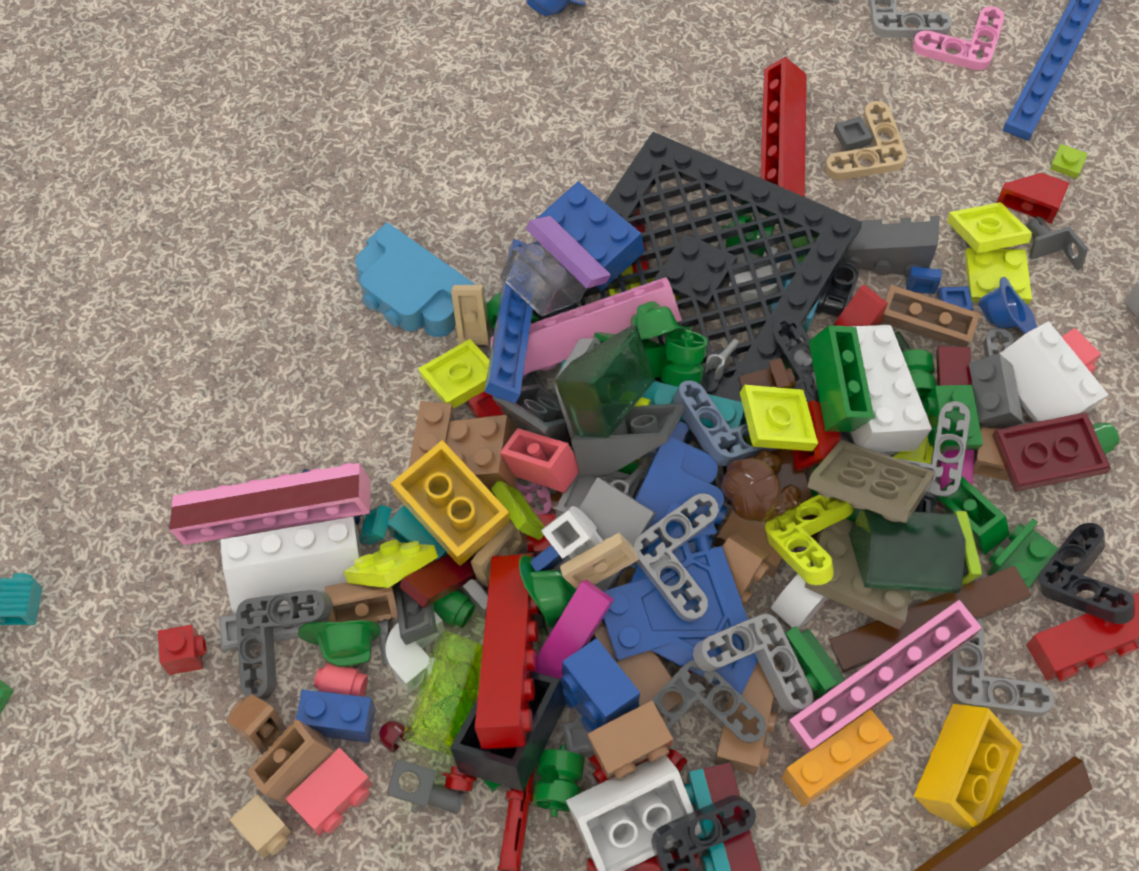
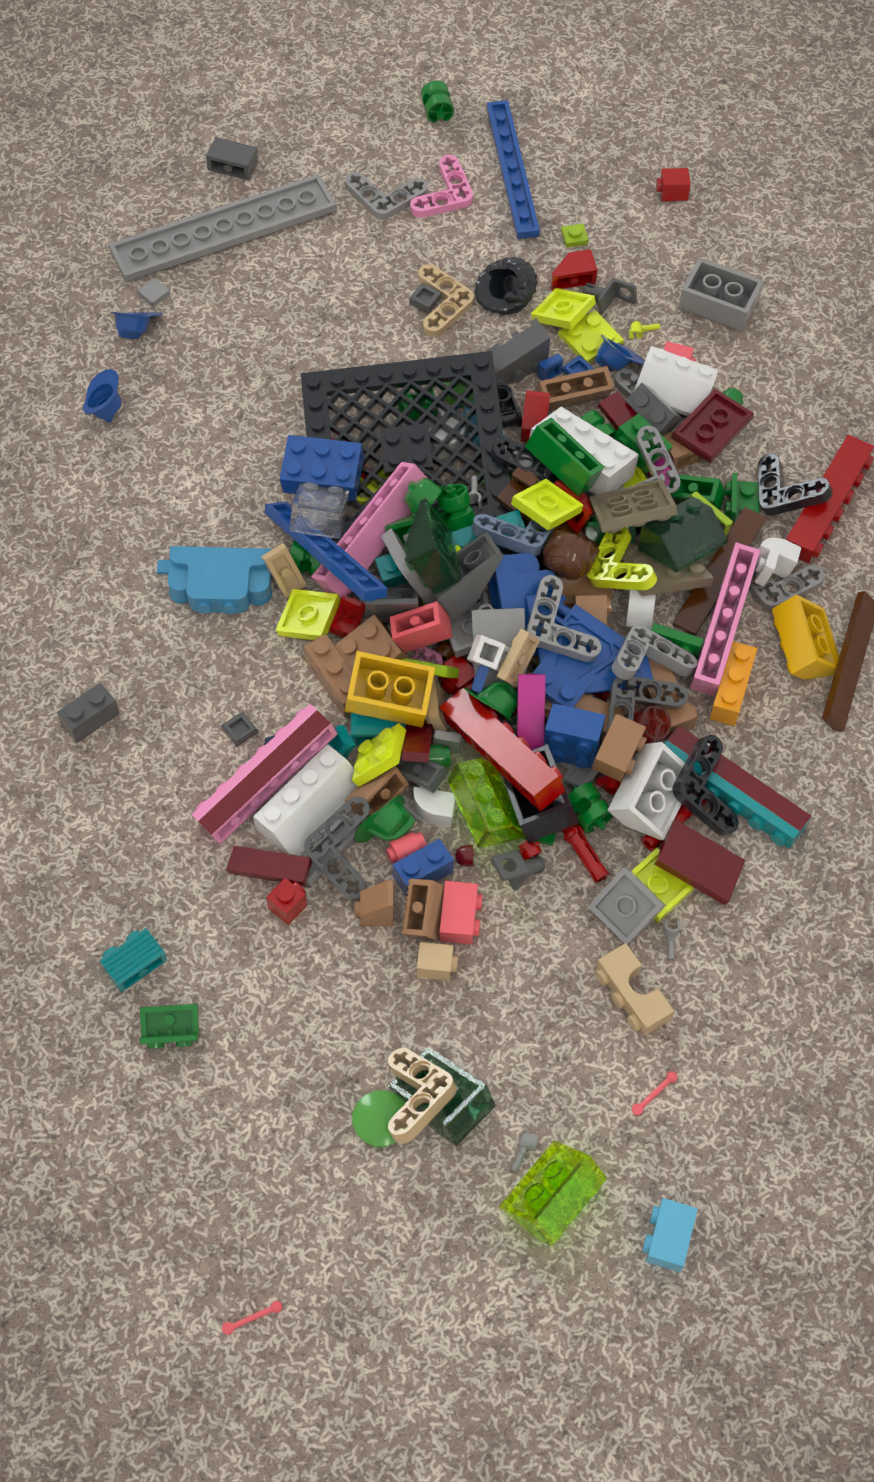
camera: 40 degrees left, 0 degrees up
(181, 332) = (88, 713): none -> dark grey brick
(201, 601) = (269, 865): none -> dark red tile
(302, 443) = (239, 729): none -> dark grey tile
(461, 50) = (102, 395): none -> blue piece
(568, 251) = (325, 484): medium lavender tile -> none
(697, 737) = (656, 722): none -> clear red wheel
(784, 126) = (378, 318): red brick -> none
(946, 169) = (506, 286): none -> black piece
(1006, 646) = (776, 557): none -> white brick
(1058, 296) = (637, 328): none -> neon yellow hand

